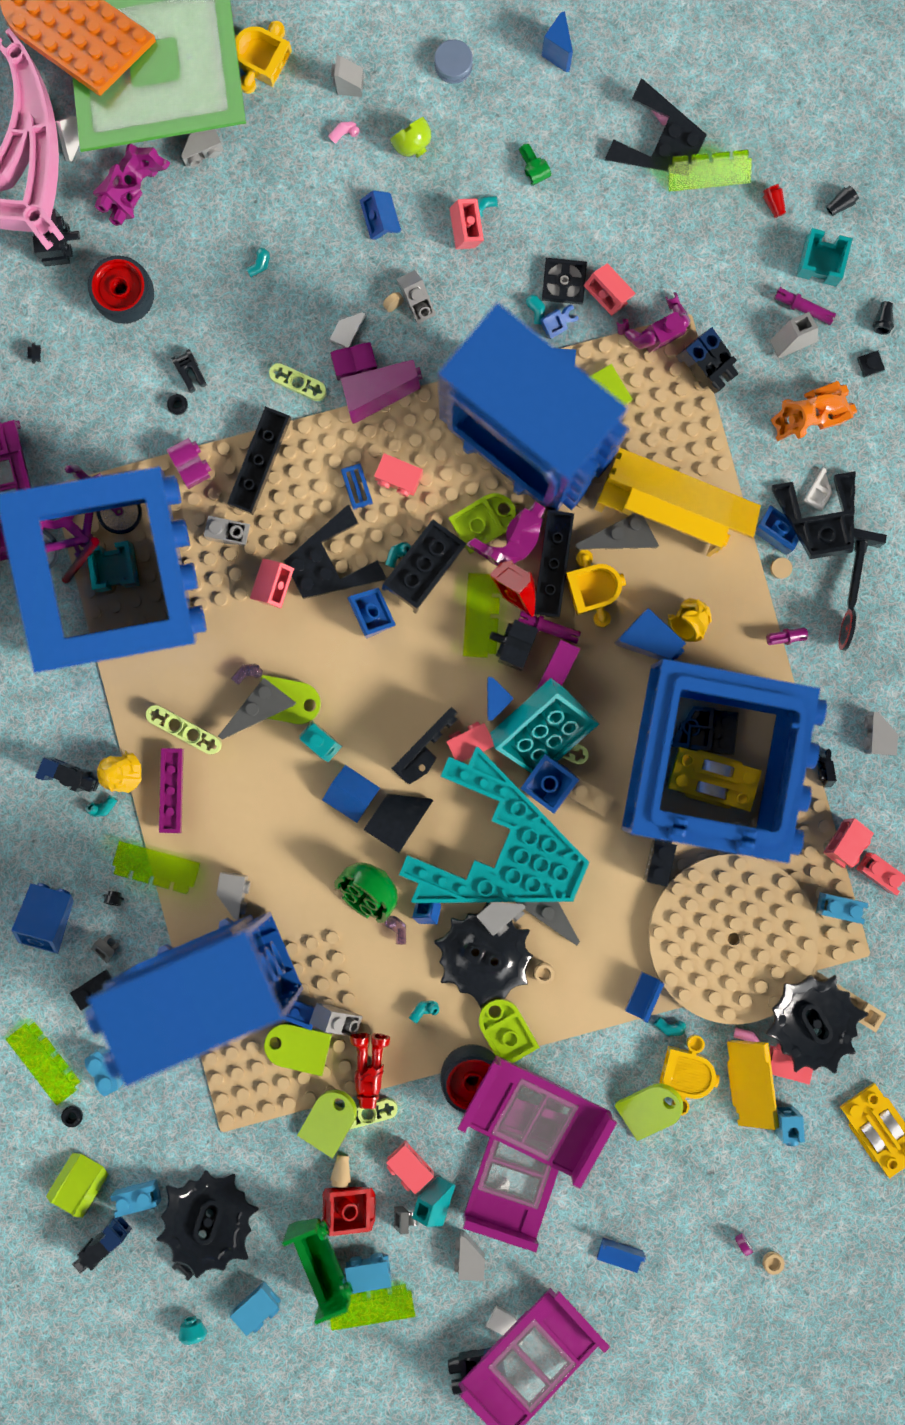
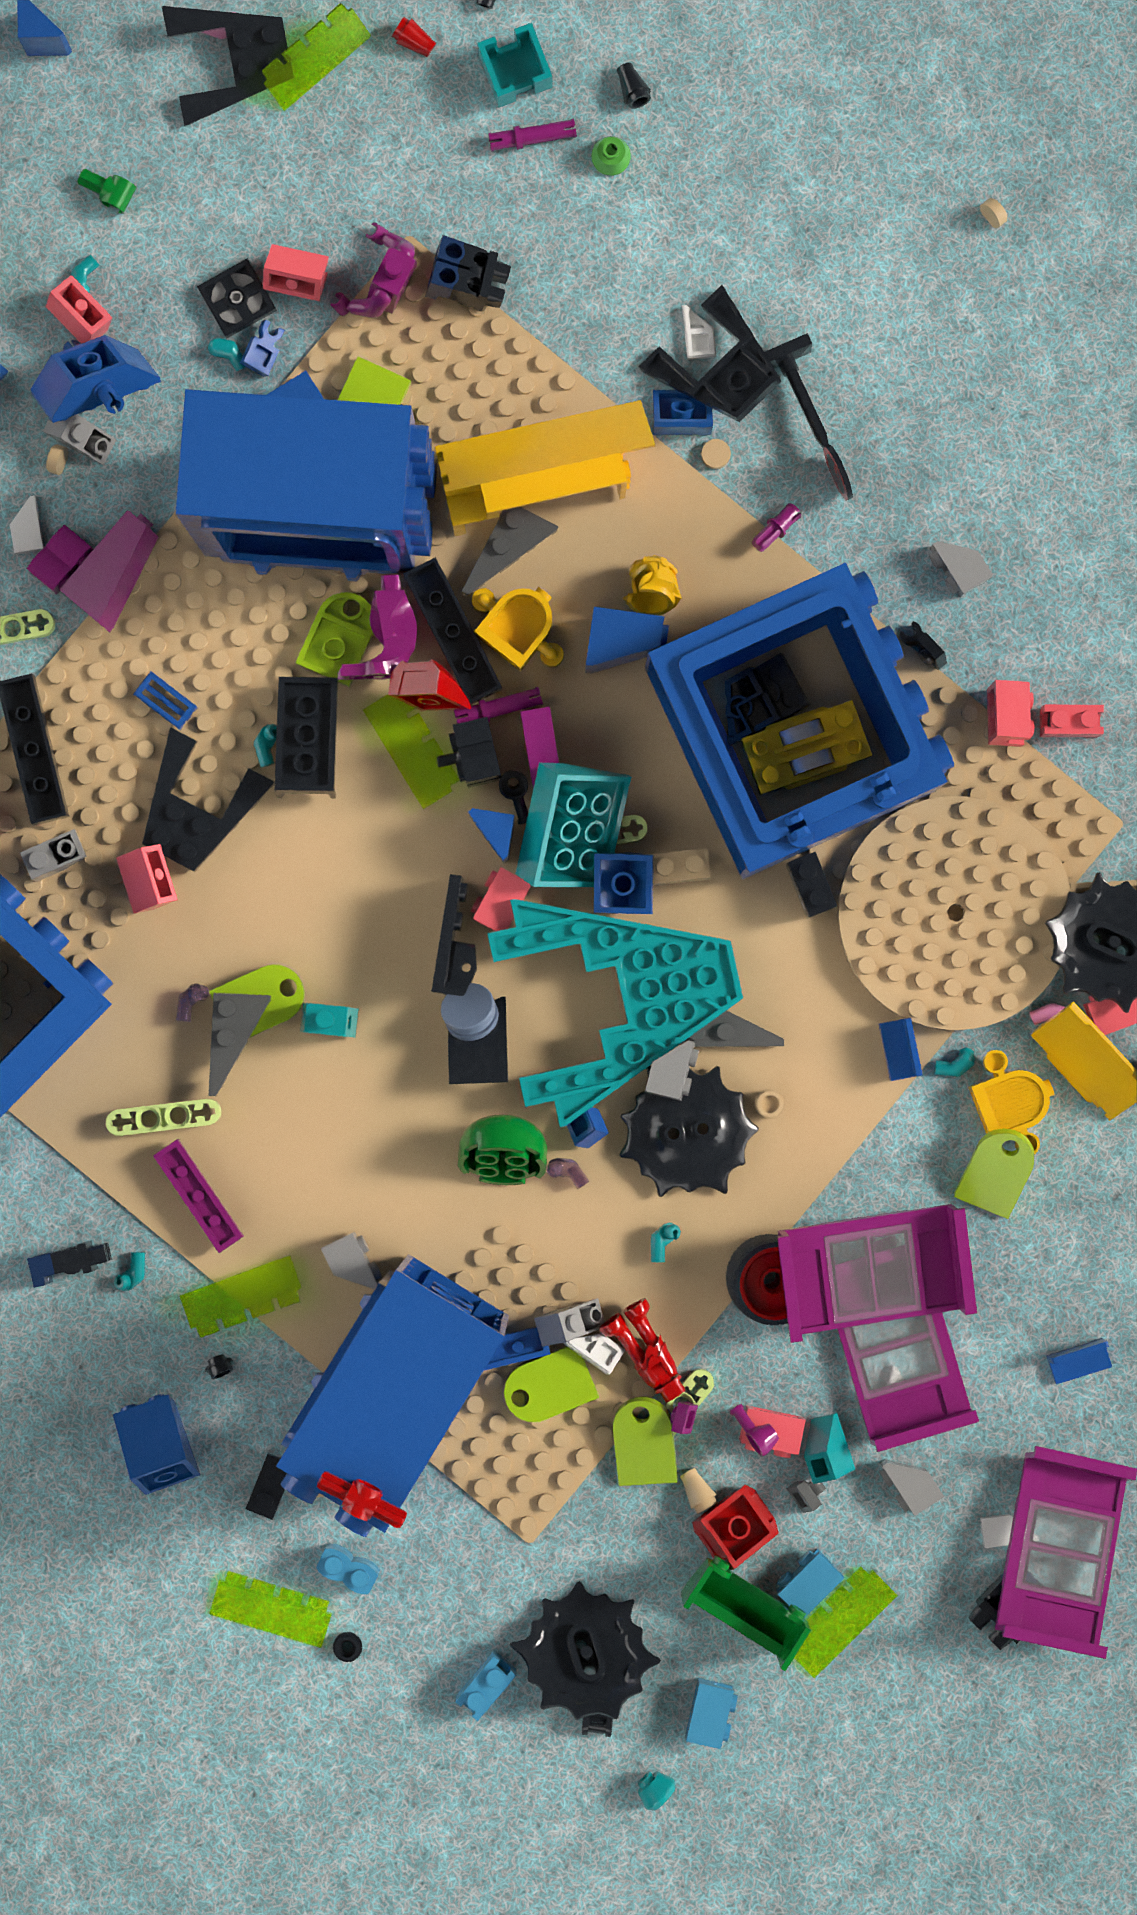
camera: 40 degrees left, 0 degrees up
(77, 1185) = (409, 1717): lime slope -> none
(102, 1244) = (482, 1774): hips -> none
(103, 950) = (249, 1432): dark grey tile -> none
(120, 773) = (126, 1216): yellow helmet -> none
(124, 1058) = (362, 1499): none -> red axle
(340, 1048) = (598, 1351): none -> white tile
(350, 793) = (406, 1055): blue slope -> none
(362, 1124) = (683, 1417): none -> magenta plate
(371, 612) = (284, 832): blue slope -> none
(398, 475) = (204, 654): coral brick -> none
(400, 1170) = (761, 1437): none -> magenta bar
(405, 798) = (470, 1015): none -> sand blue head
(446, 265) = (91, 376): none -> blue slope
(508, 1032) = (775, 1198): lime tile -> none
(523, 685) = (515, 793): none -> black bar
(795, 335) = (544, 177): light grey slope -> none
(802, 414) = (614, 262): orange hips -> none
(841, 908) = (1051, 791): dark azure brick -> none
(842, 350) = (616, 160): none -> bright green cone
(871, 364) = (654, 148): black plate -> none

